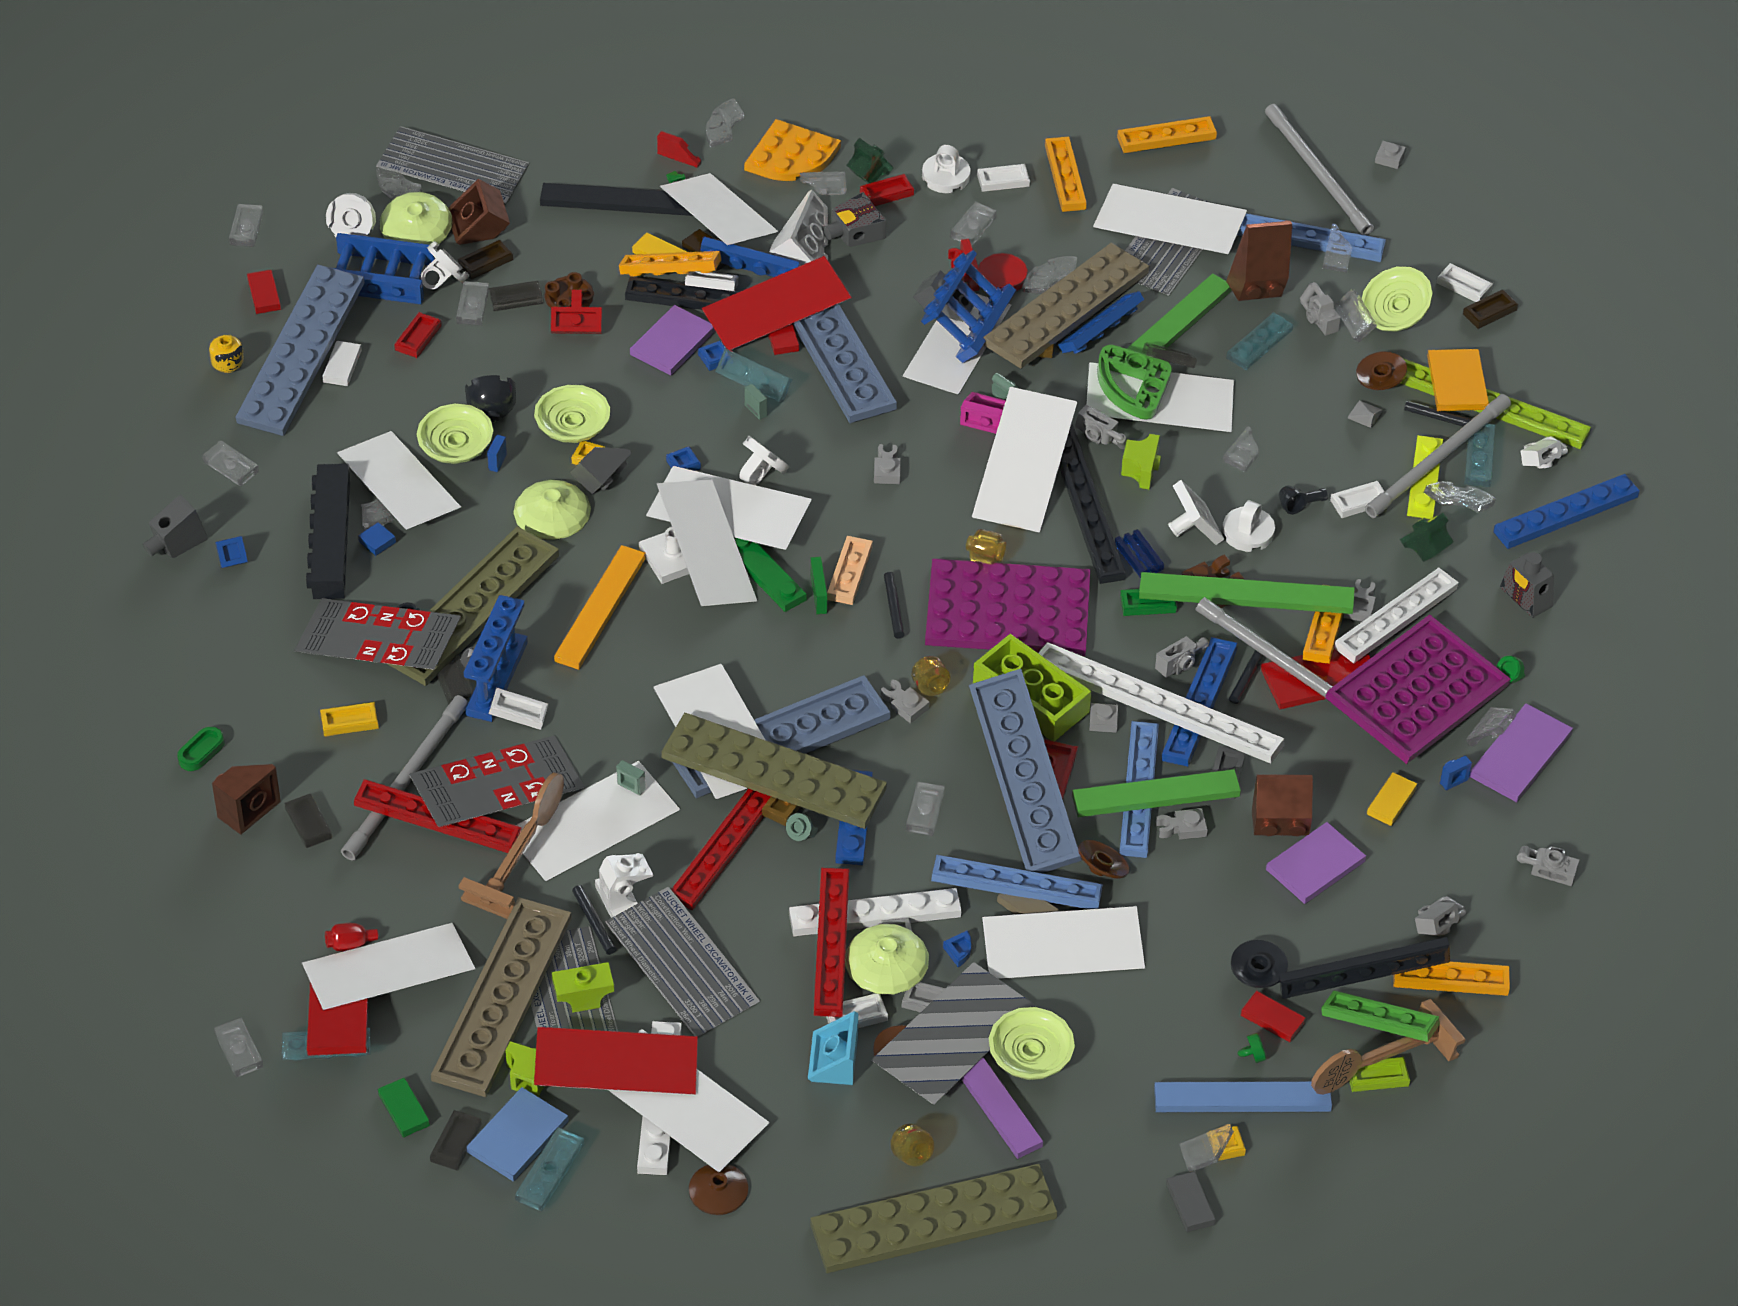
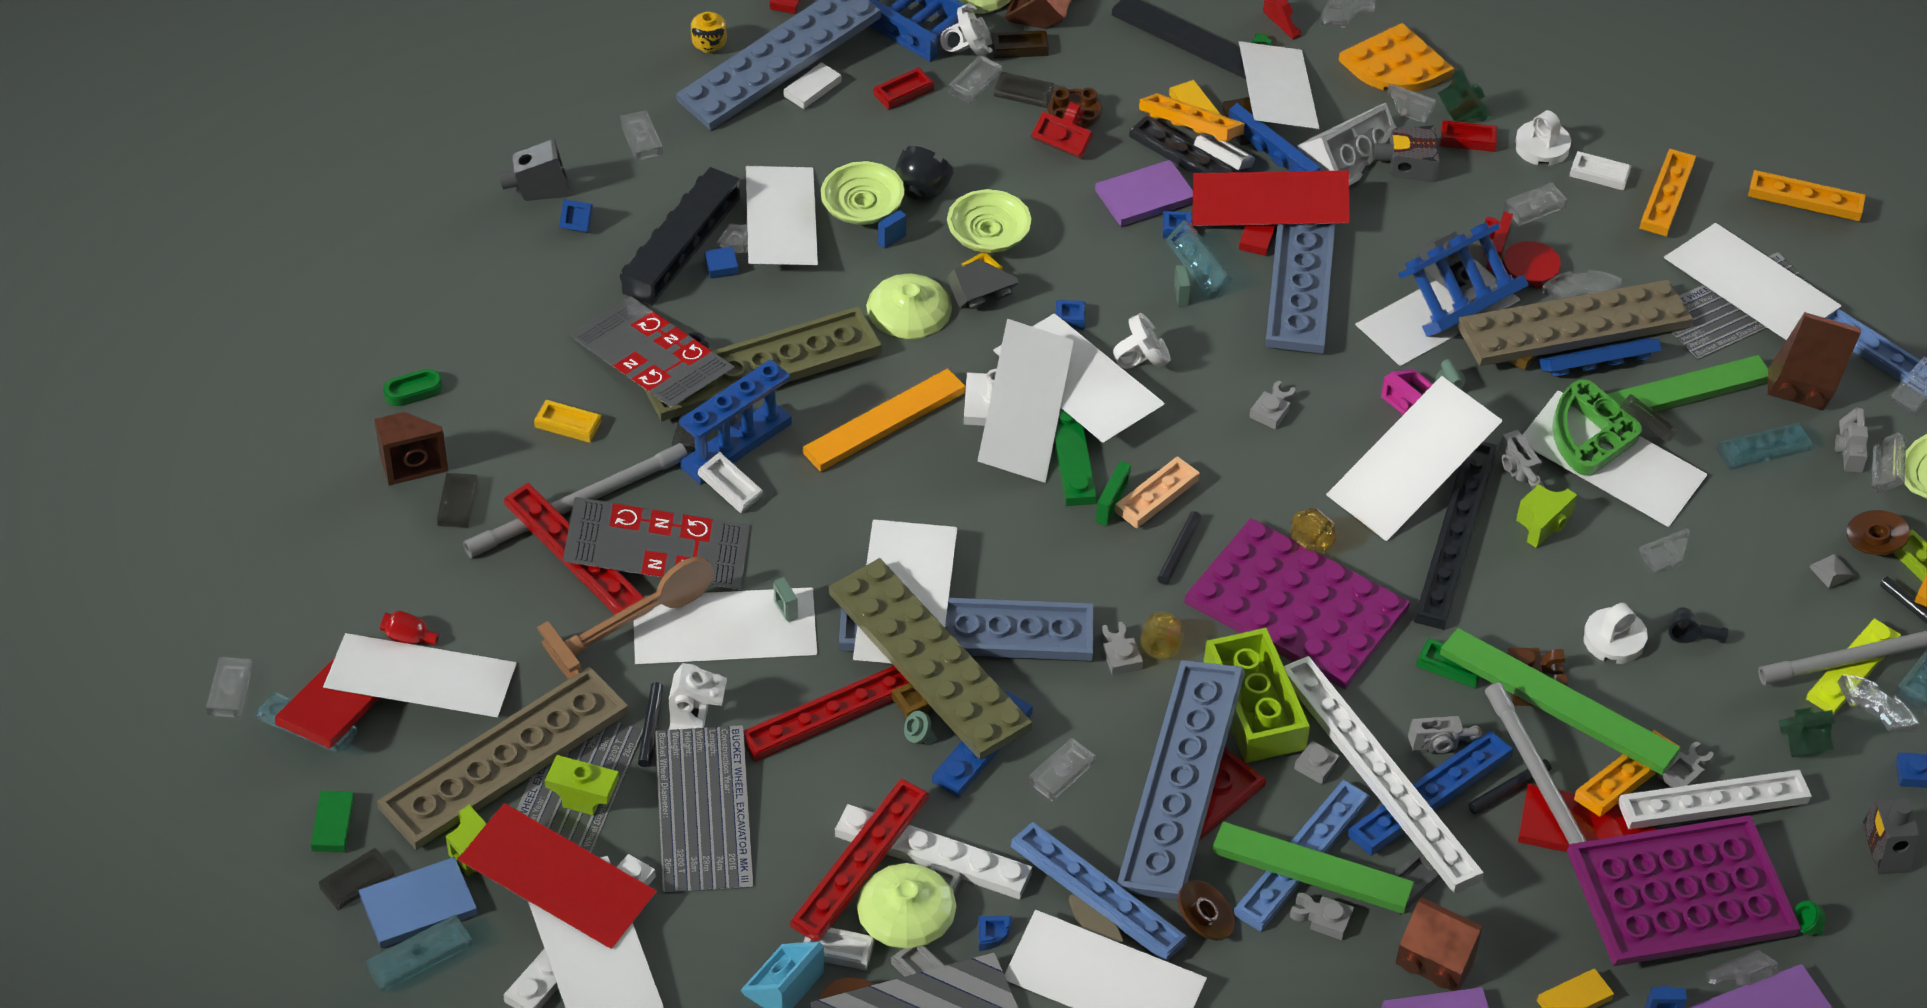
camera: 30 degrees right, 0 degrees up
(1143, 552) = (1476, 590): clear blue tile -> none
(1196, 514) = (1561, 592): white tile -> none
(1355, 499) = (1750, 655): white tile -> none

